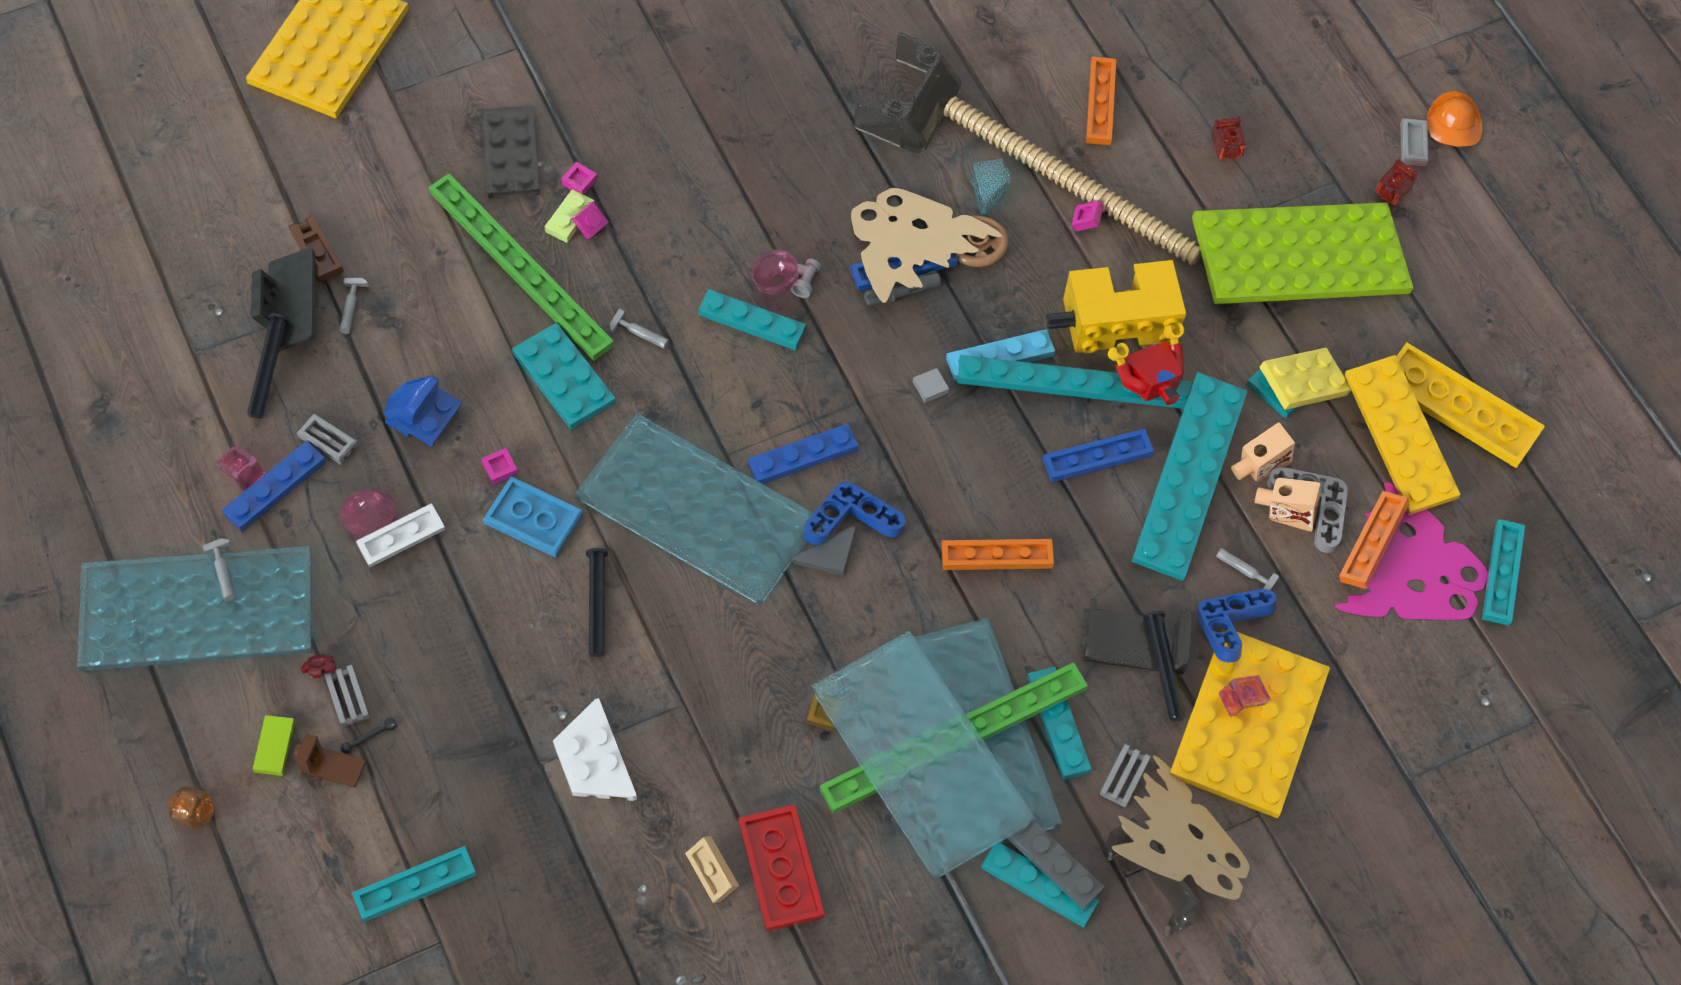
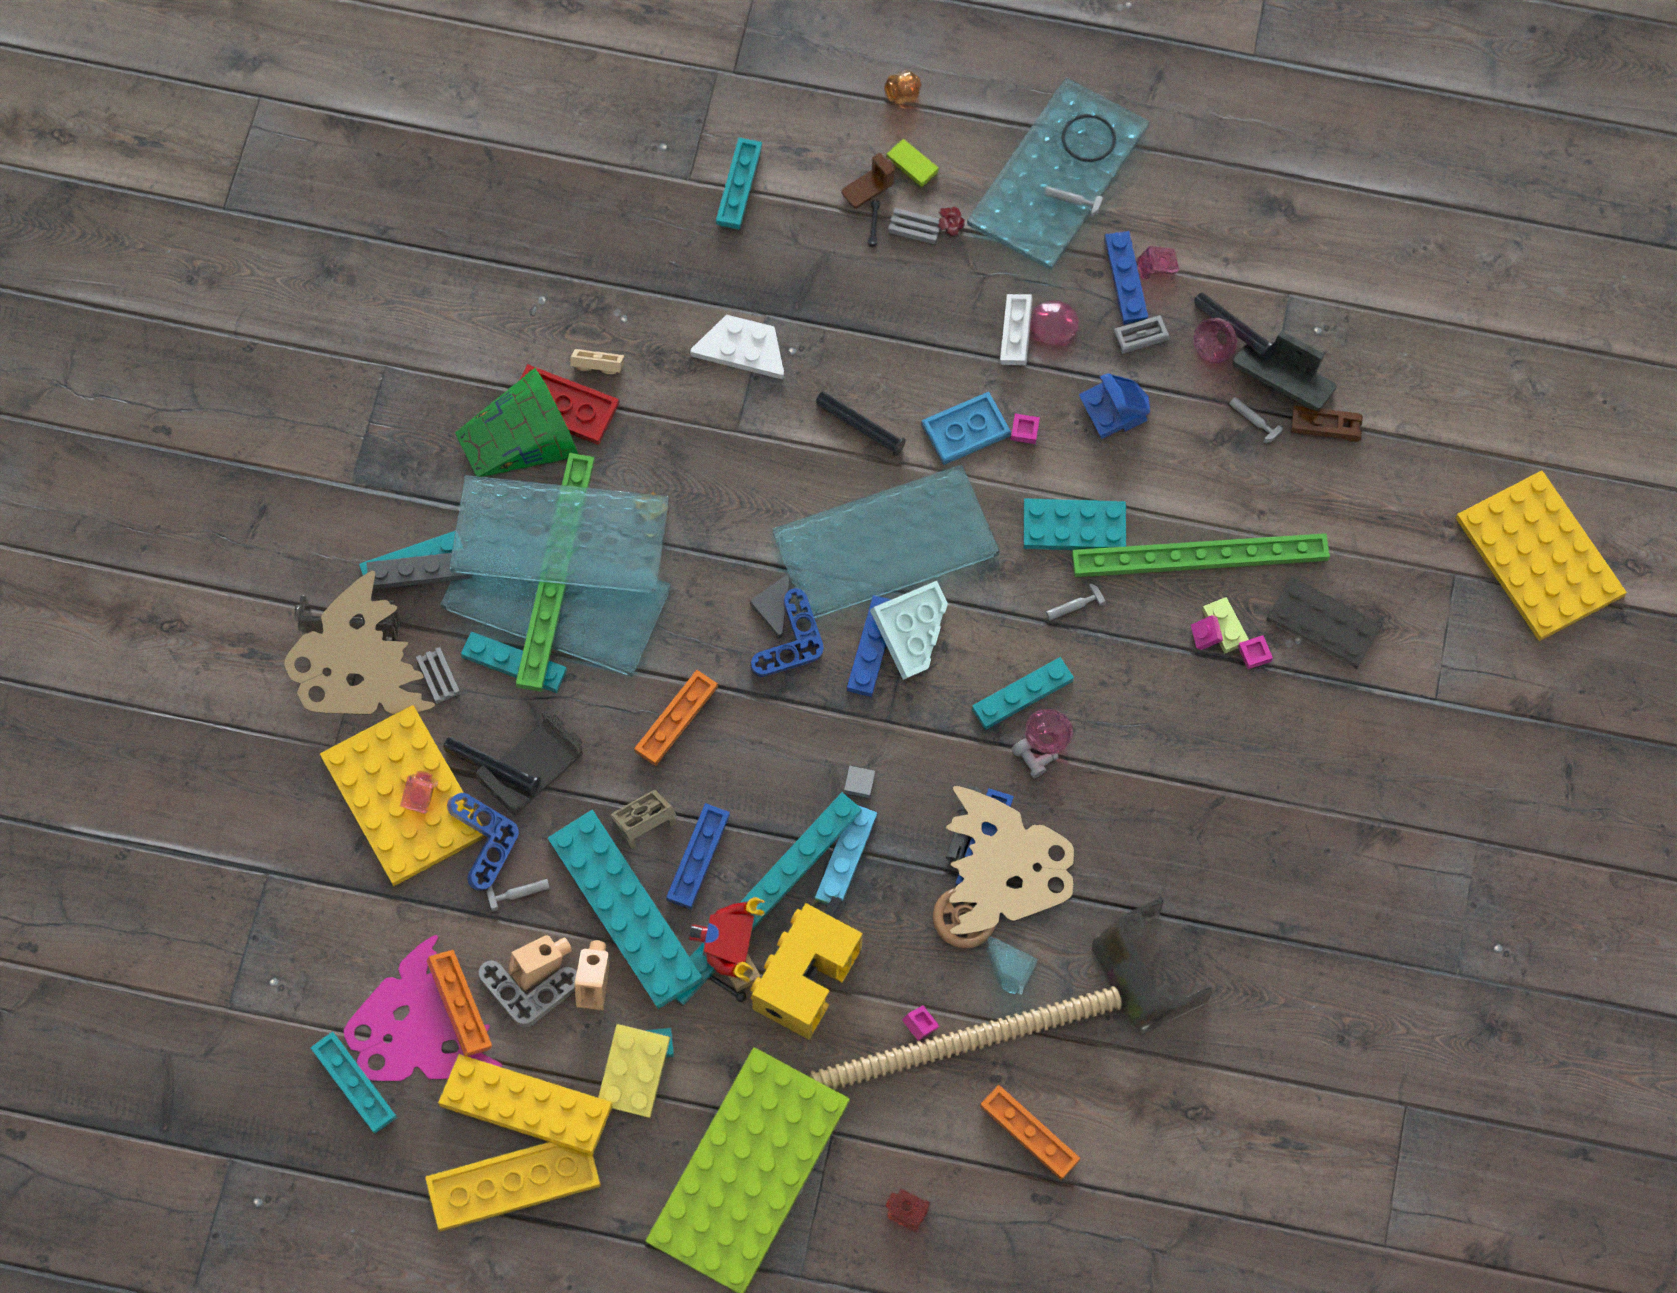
camera: 130 degrees right, 5 degrees up
(108, 601) = (1088, 159): none -> black piece
(301, 365) = (1207, 343): none -> clear pink piece
(763, 430) = (911, 627): none -> light aqua plate
(841, 886) = (517, 430): none -> green wedge
(1131, 502) = (628, 814): none -> dark tan piece

